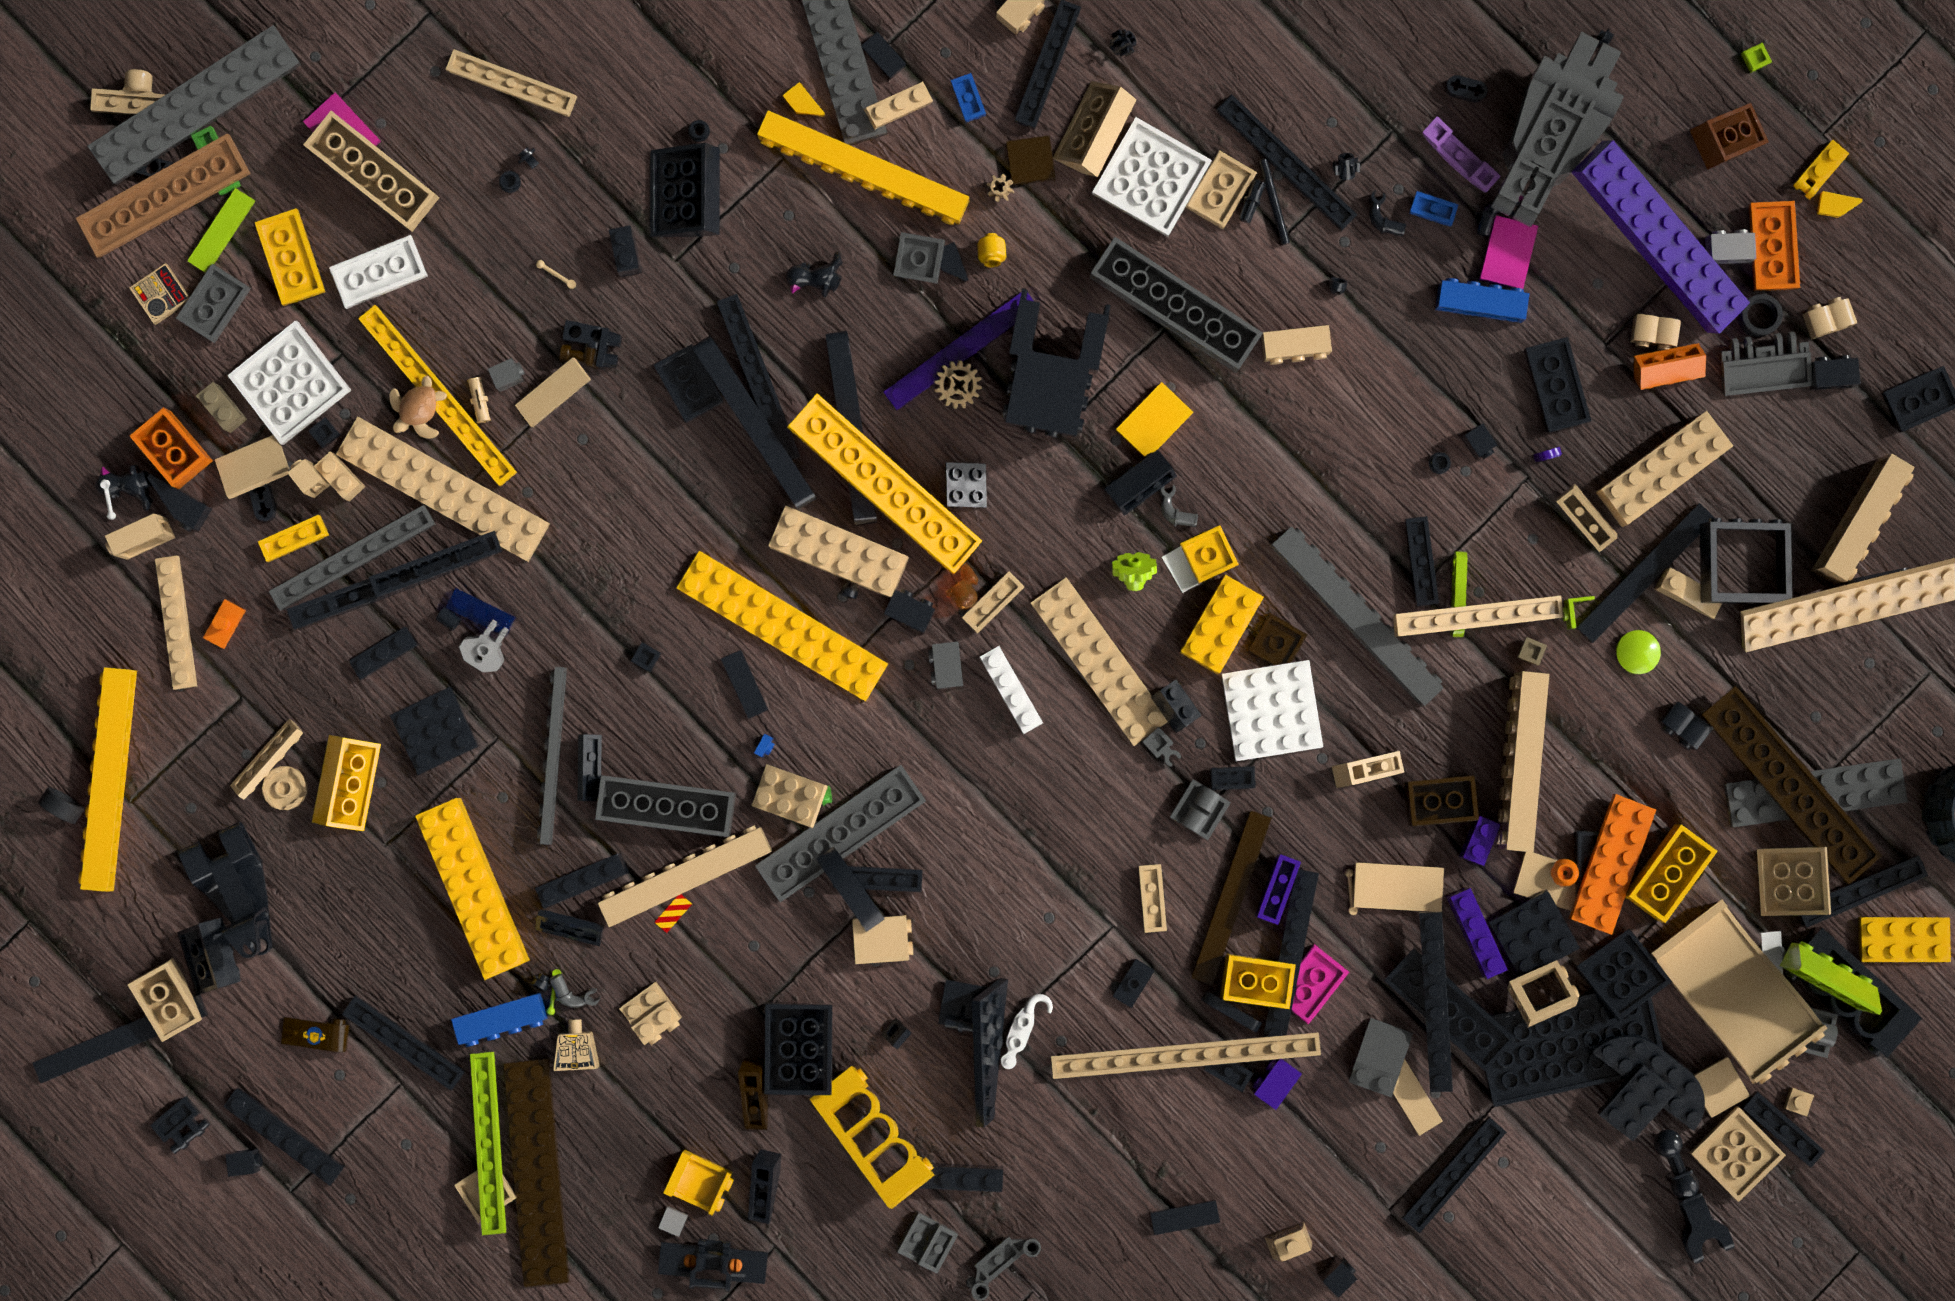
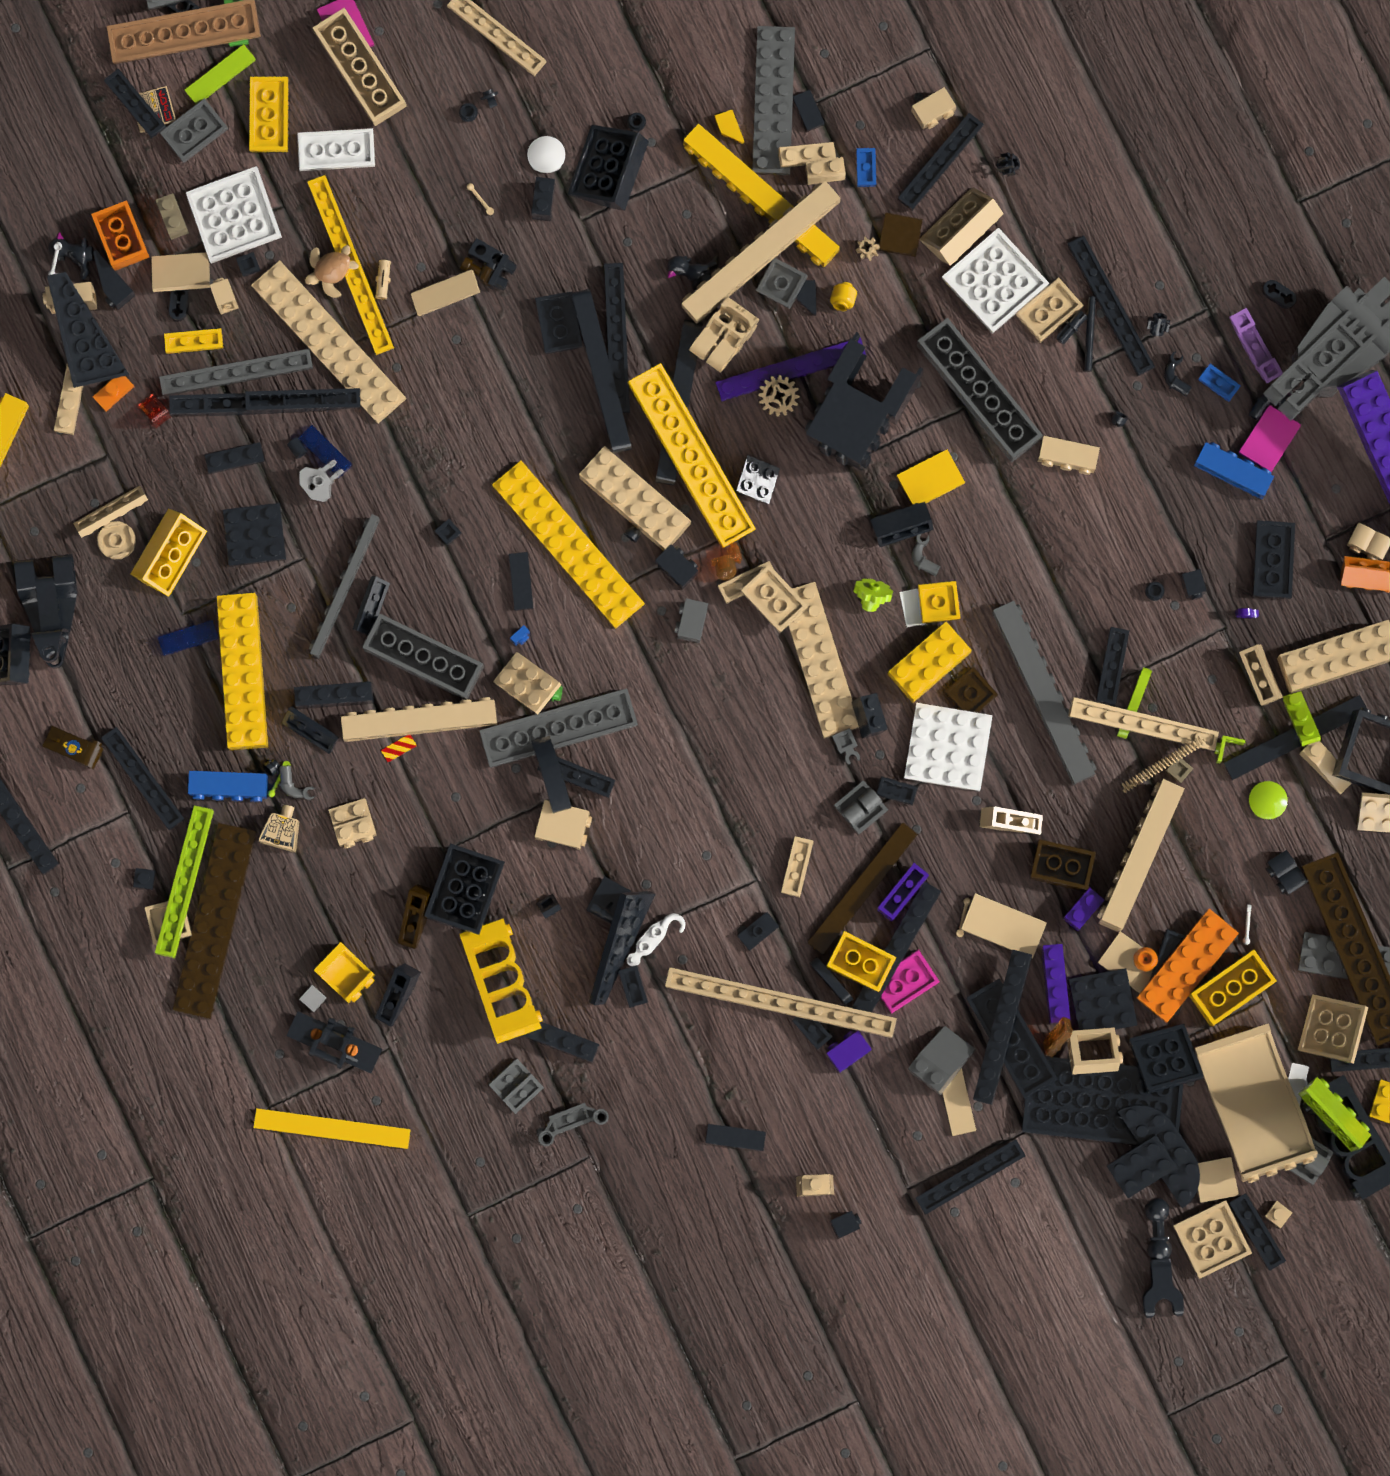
camera: 20 degrees right, 5 degrees down
(136, 294) = (134, 103): none -> black plate
(171, 583) = (85, 345): none -> black wing
(277, 630) = (154, 410): none -> clear red slope
(339, 476) = (248, 303): tan brick -> none
(400, 869) = (188, 638): none -> clear blue plate
(443, 1152) = (144, 878): none -> black plate
(506, 374) = (412, 266): dark grey brick -> none
(611, 200) = (546, 154): none -> white dish
(866, 335) = (719, 331): none -> tan connector
(885, 232) = (760, 252): none -> tan brick
(924, 116) = (825, 170): none -> tan brick
(1011, 690) = (738, 657): white brick -> none
(1018, 1090) = (633, 986): none -> black plate
(1029, 612) = (774, 598): none -> tan plate
(1499, 992) = (1057, 1037): none -> clear orange plate
(1511, 653) = (1164, 762): none -> tan piece
(1647, 551) = (1301, 718): none -> lime plate
(1664, 814) = (1246, 940): none -> white hinge

